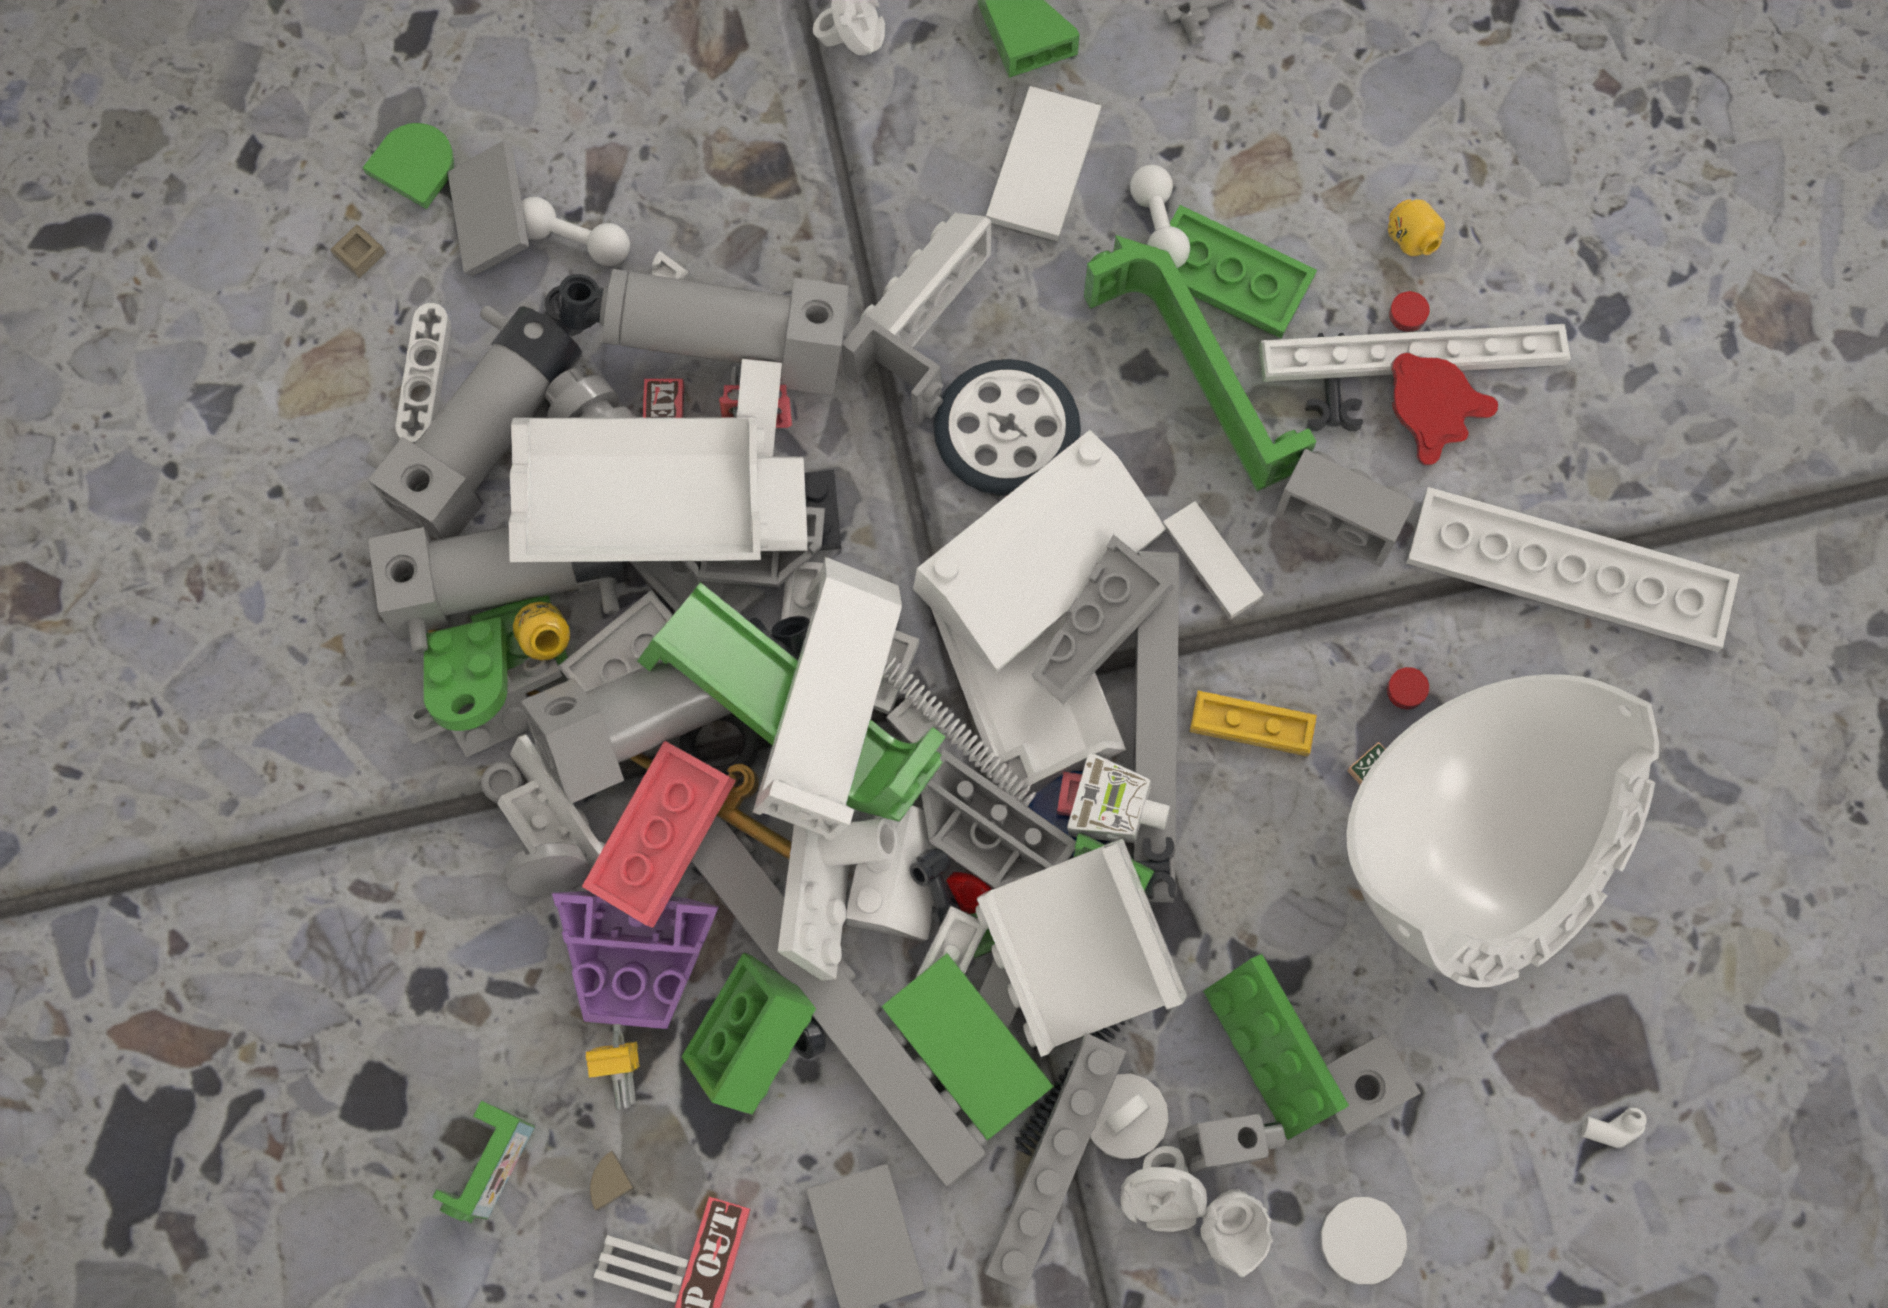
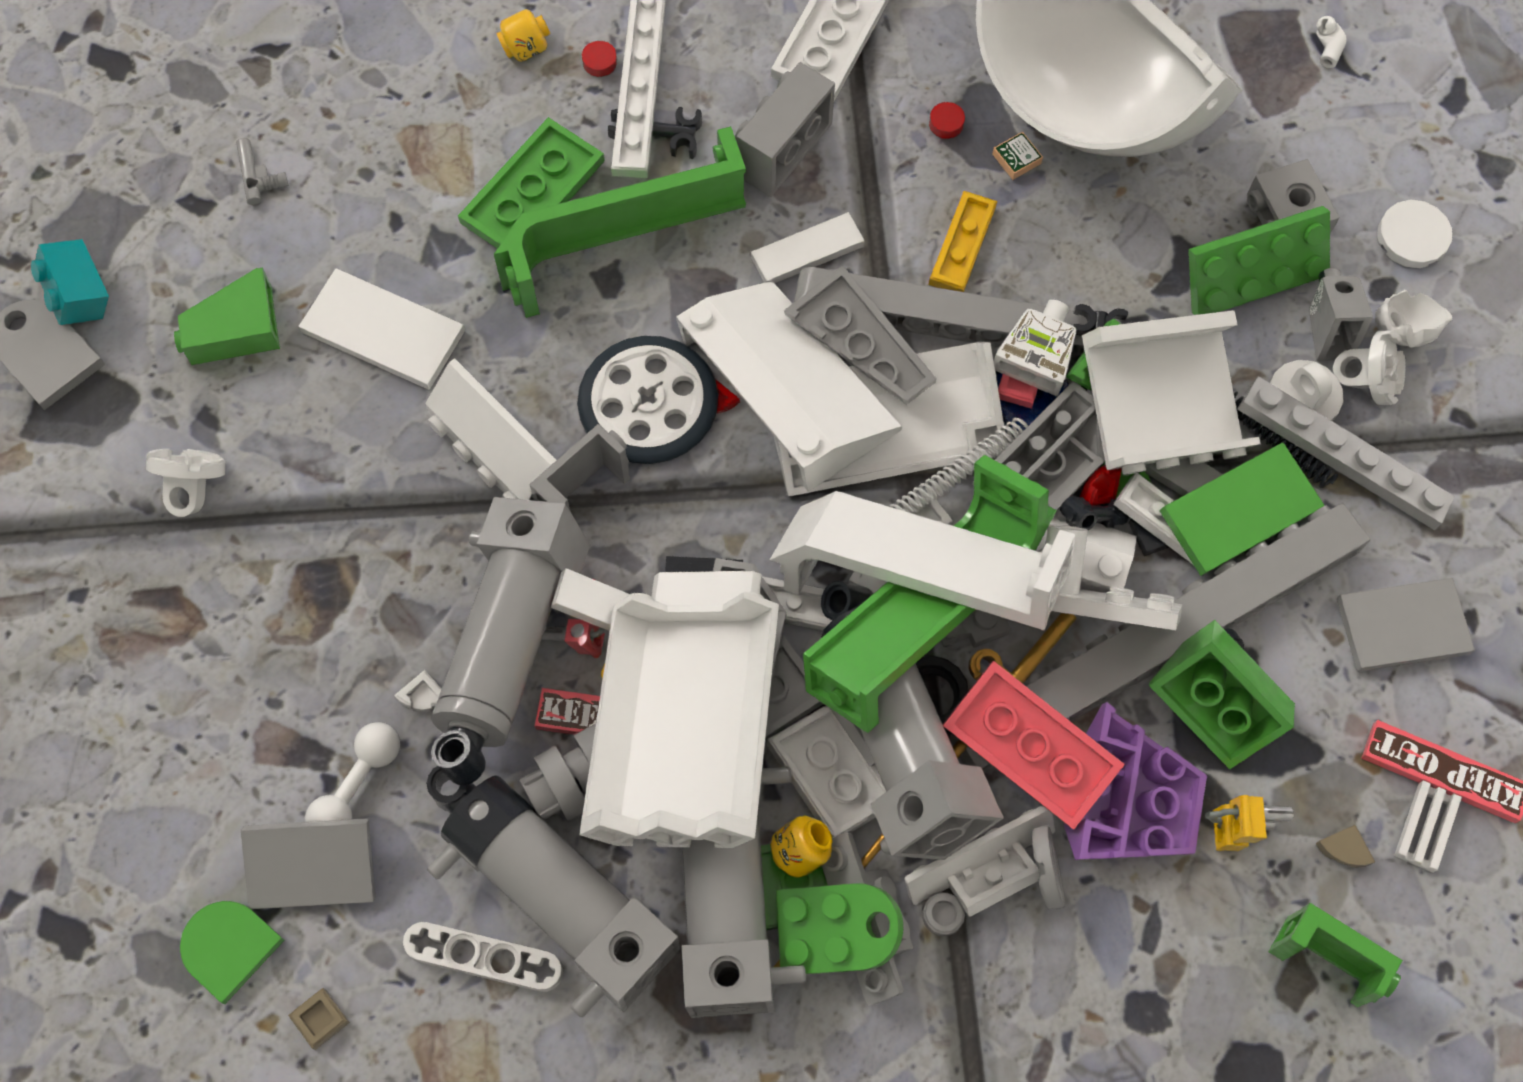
camera: 85 degrees left, 5 degrees down
(1151, 189) = (434, 237): white piece -> none
(1434, 401) = (693, 50): red tile -> none

